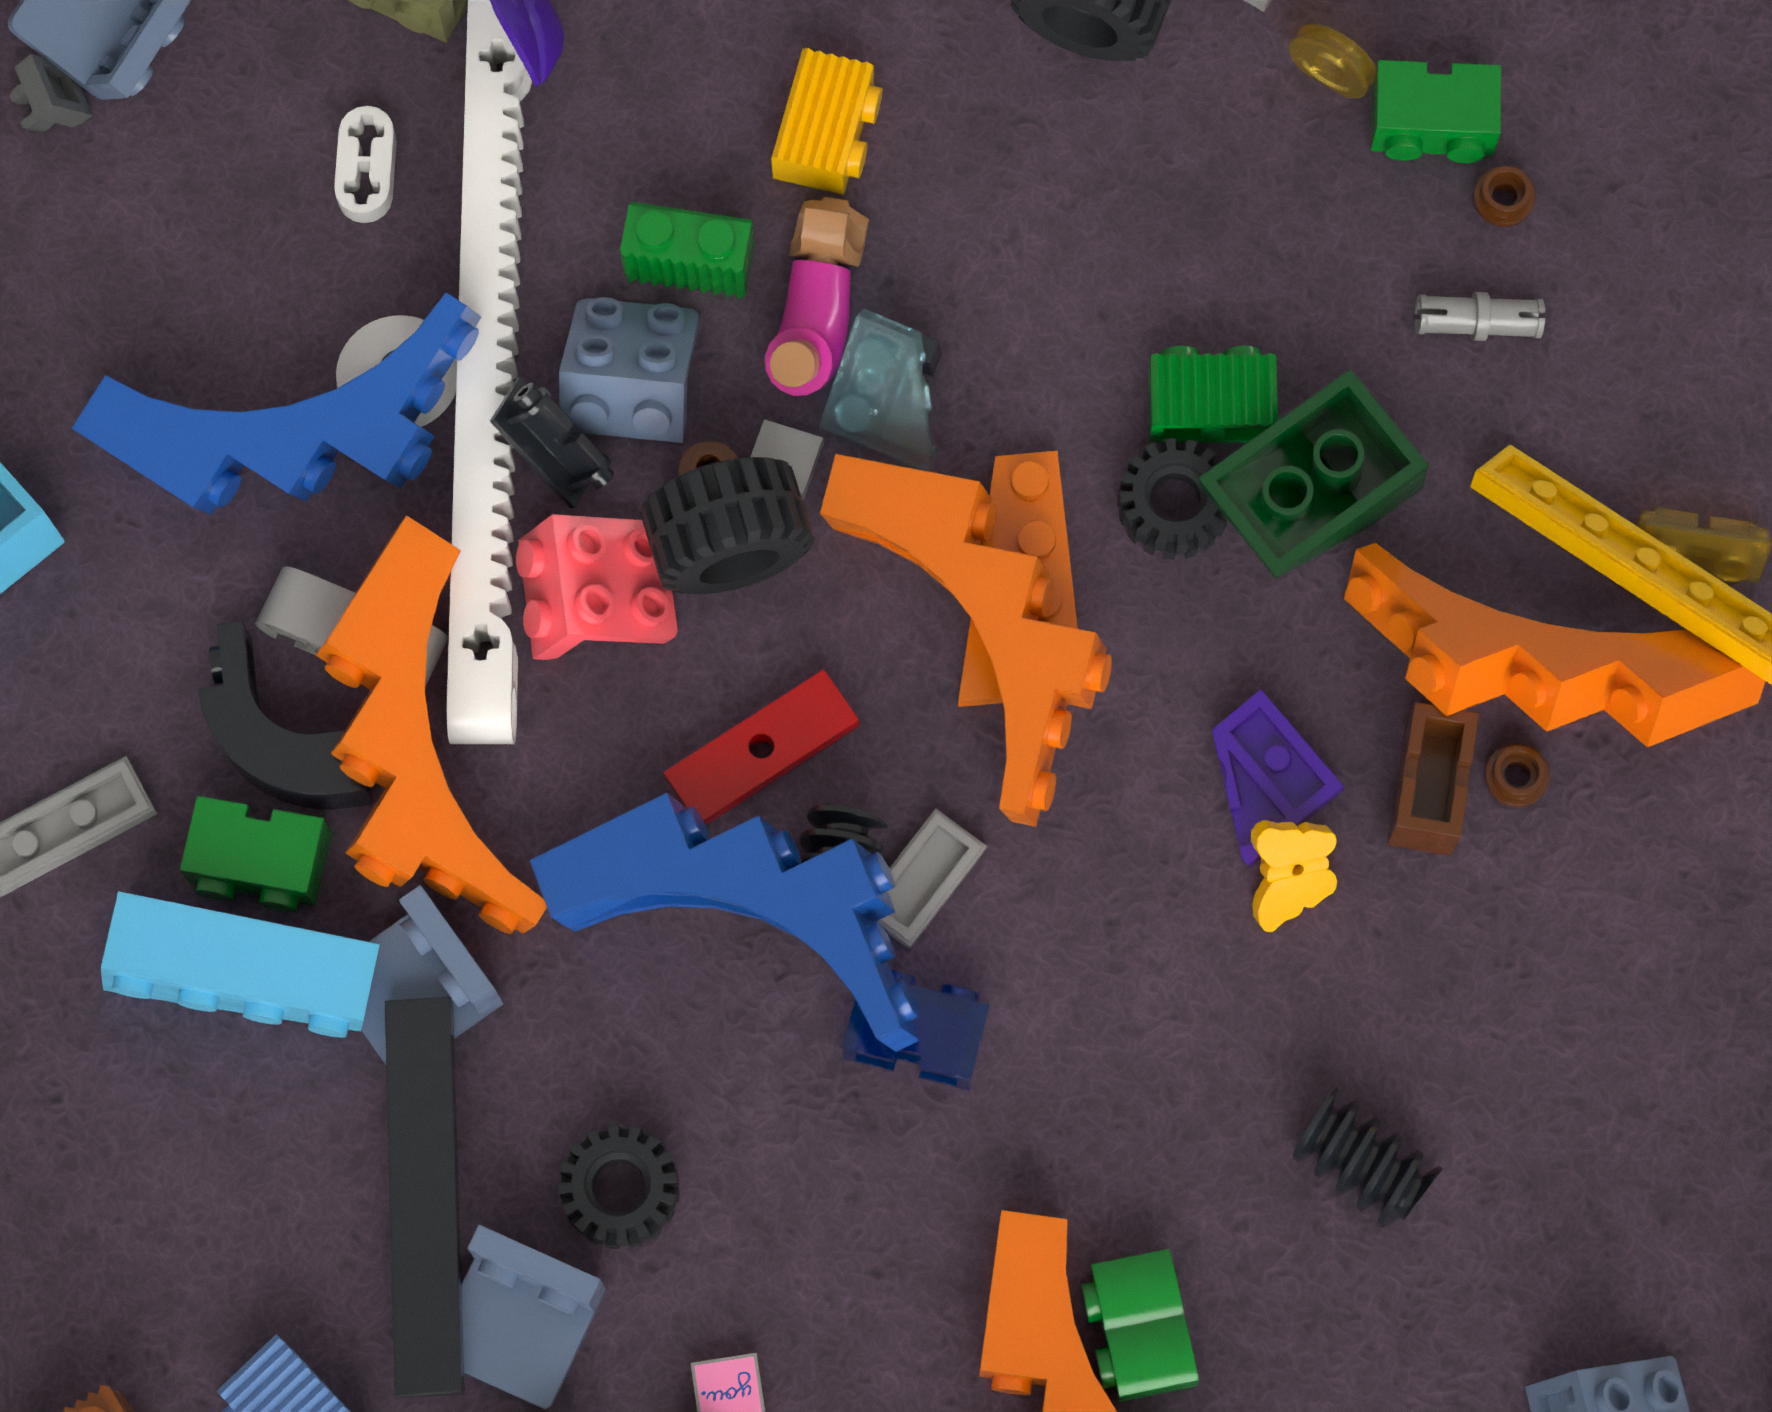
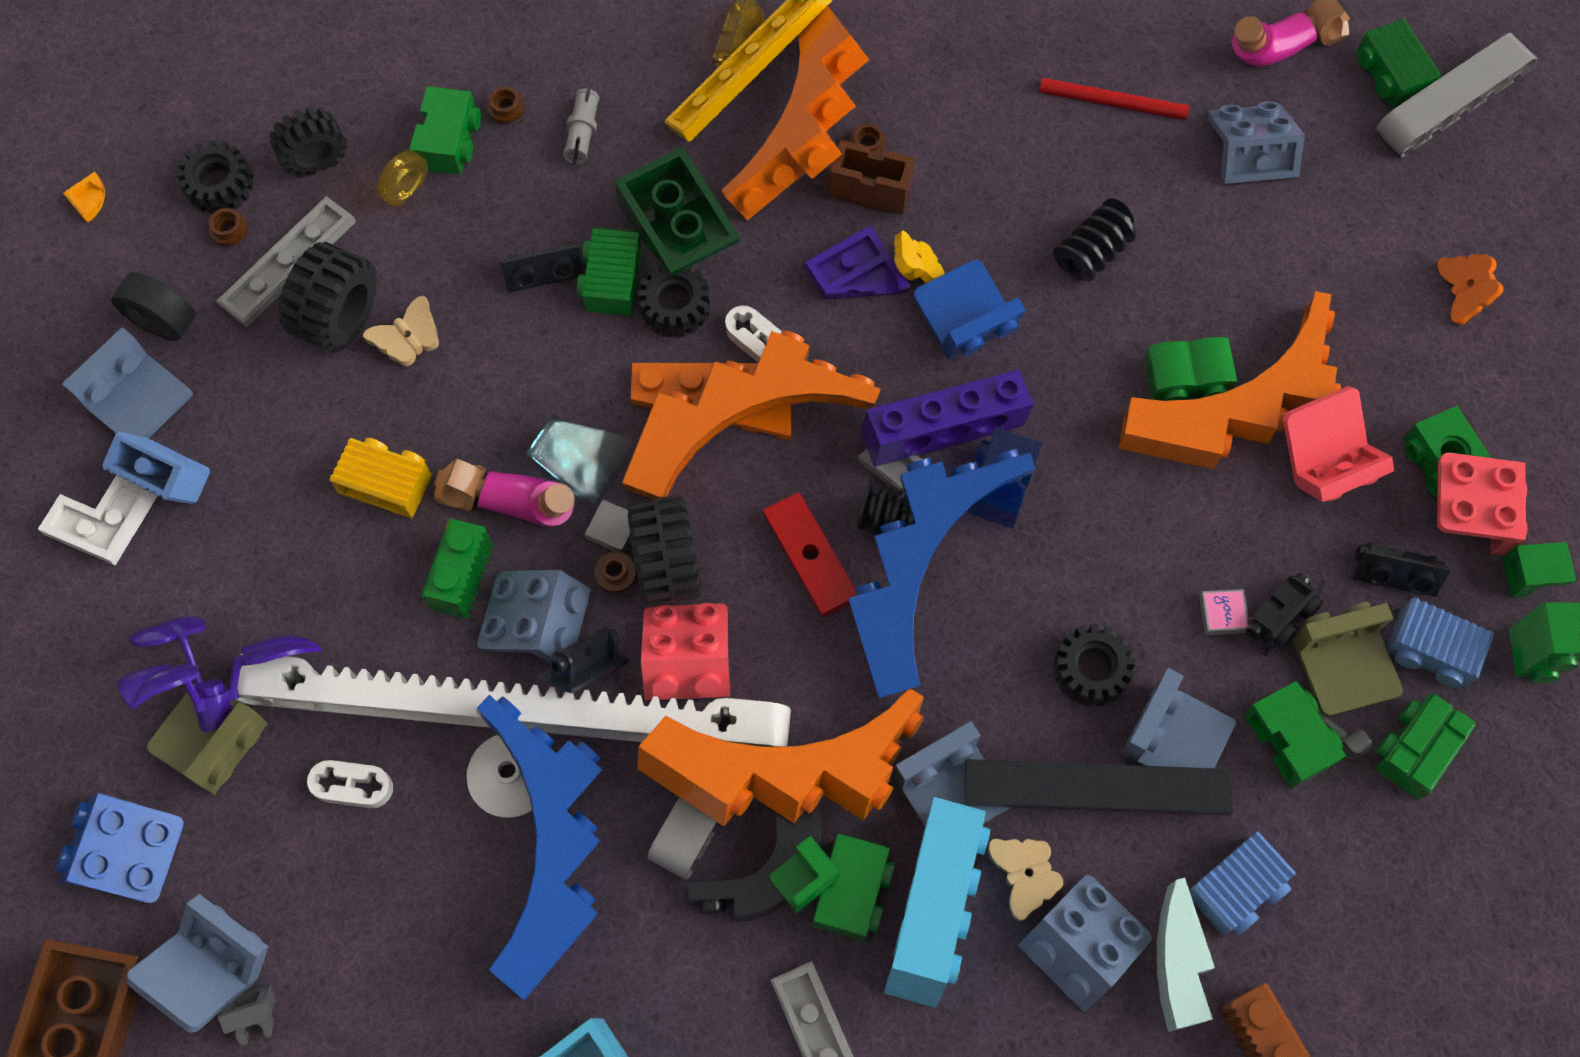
camera: 85 degrees left, 5 degrees down
(176, 1326) = (1180, 959): none -> light aqua slope
(203, 1194) = (1086, 942): none -> sand blue bracket
(253, 773) = (804, 875): none -> green panel
(267, 1102) = (1026, 891): none -> tan animal
(1003, 929) = (945, 417): none -> dark purple brick
(1057, 97) = (393, 340): none -> tan animal
(1148, 636) = (745, 339): none -> white beam
(1202, 270) = (541, 268): none -> black hinge
(1210, 953) = (967, 309): none -> blue bracket
(1673, 1189) = (1114, 98): none -> red bar

